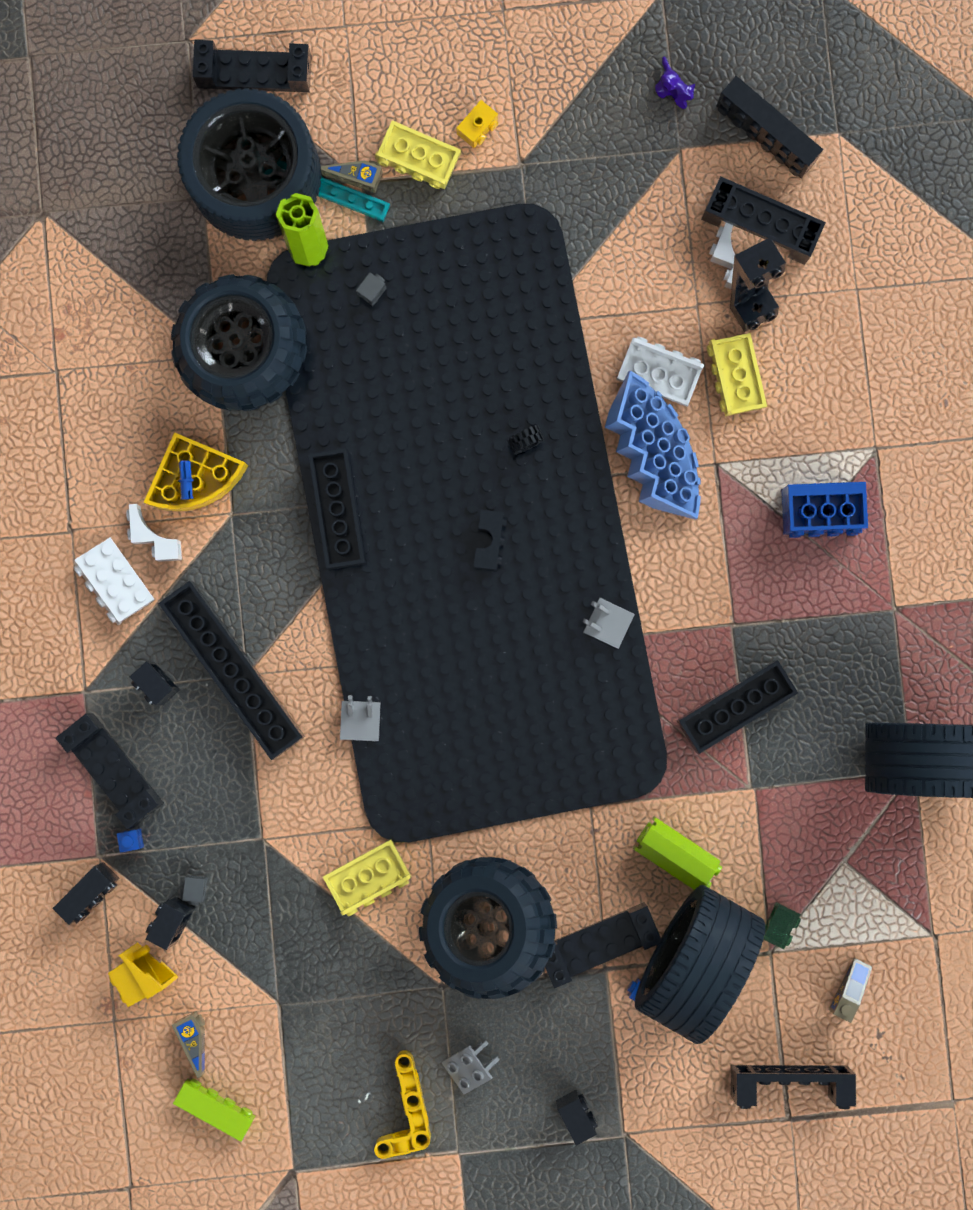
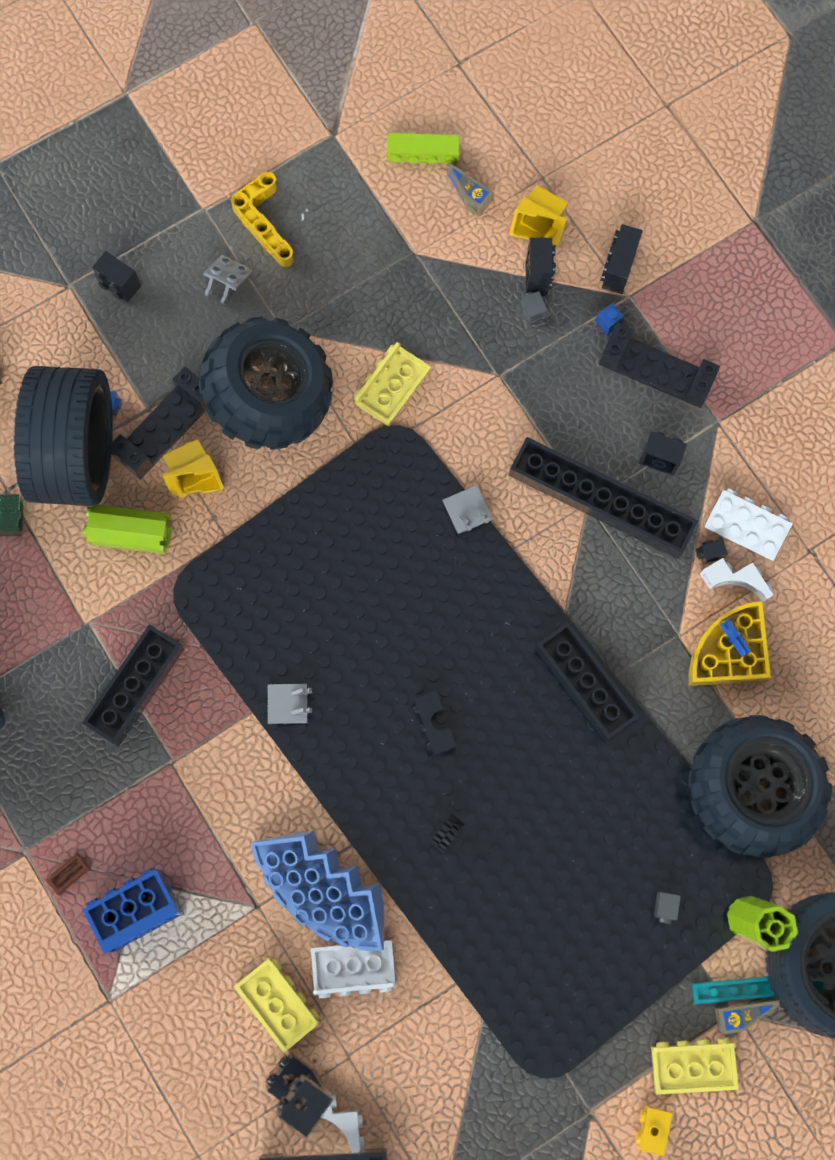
camera: 150 degrees right, 10 degrees down
(160, 573) = (712, 551): none -> black brick
(595, 883) = (191, 471): none -> yellow piece
(849, 575) = (86, 868): none -> copper tile

